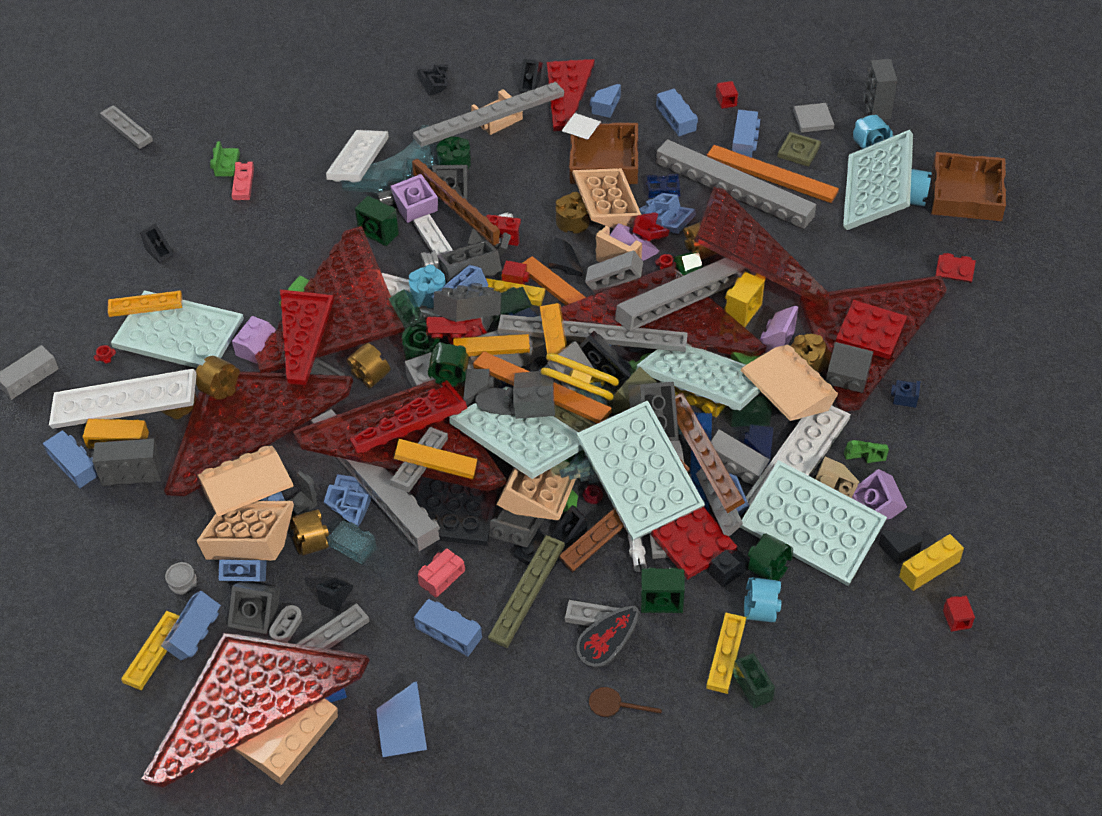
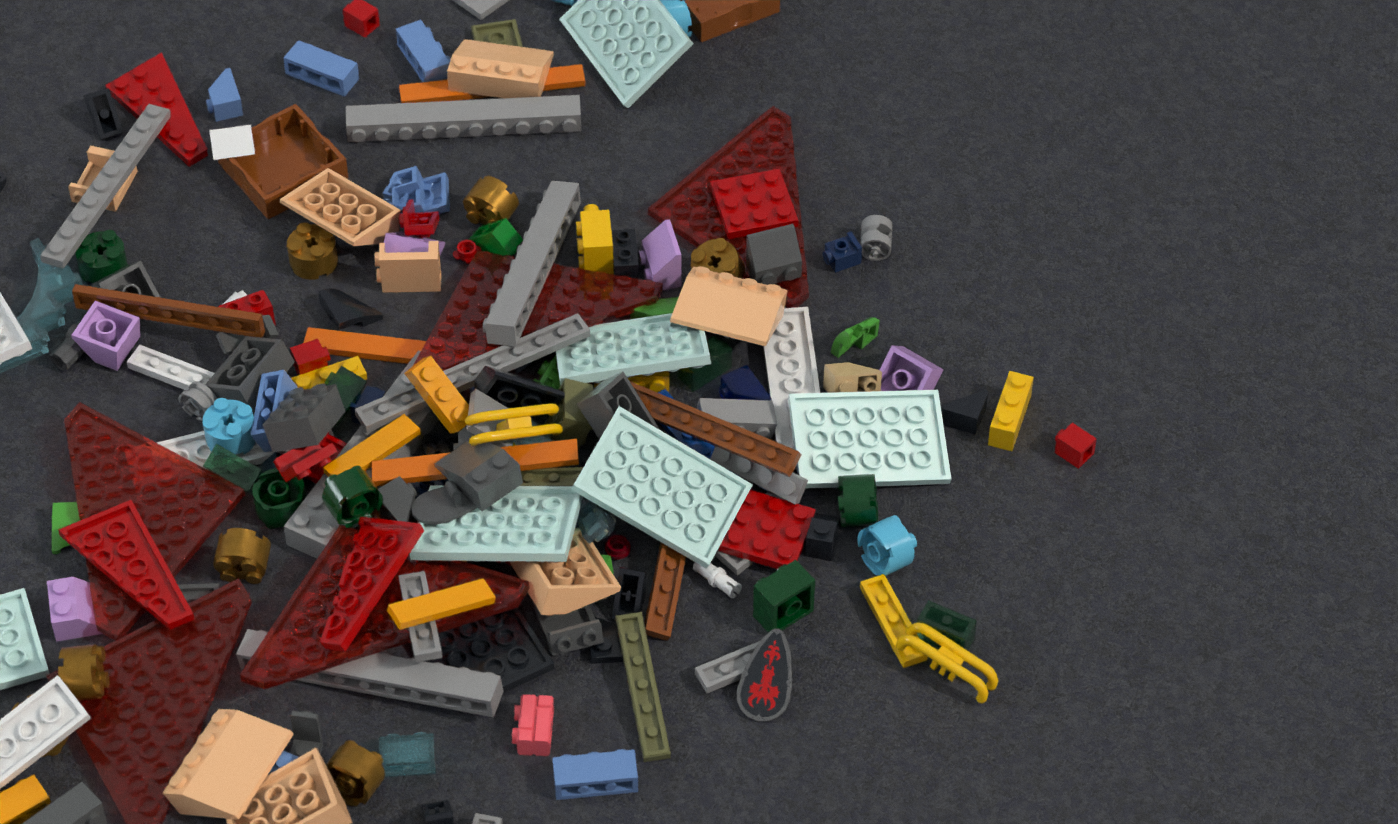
camera: 40 degrees left, 0 degrees up
(348, 499) = (356, 713): medium blue slope -> none
(377, 220) = (88, 382): dark green brick -> none
(607, 702) = (819, 745): reddish brown piece -> none
(614, 271) = (428, 292): light grey brick -> none
(653, 192) = (387, 168): clear blue piece -> none
(738, 236) = (544, 179): clear red plate -> none
(738, 702) = (950, 658): none -> yellow piece
(758, 316) = (625, 253): none -> black brick
(780, 164) = (498, 70): none -> light nougat slope
(936, 395) = (876, 237): none -> light grey wheel
(955, 268) = (779, 89): red bracket -> none

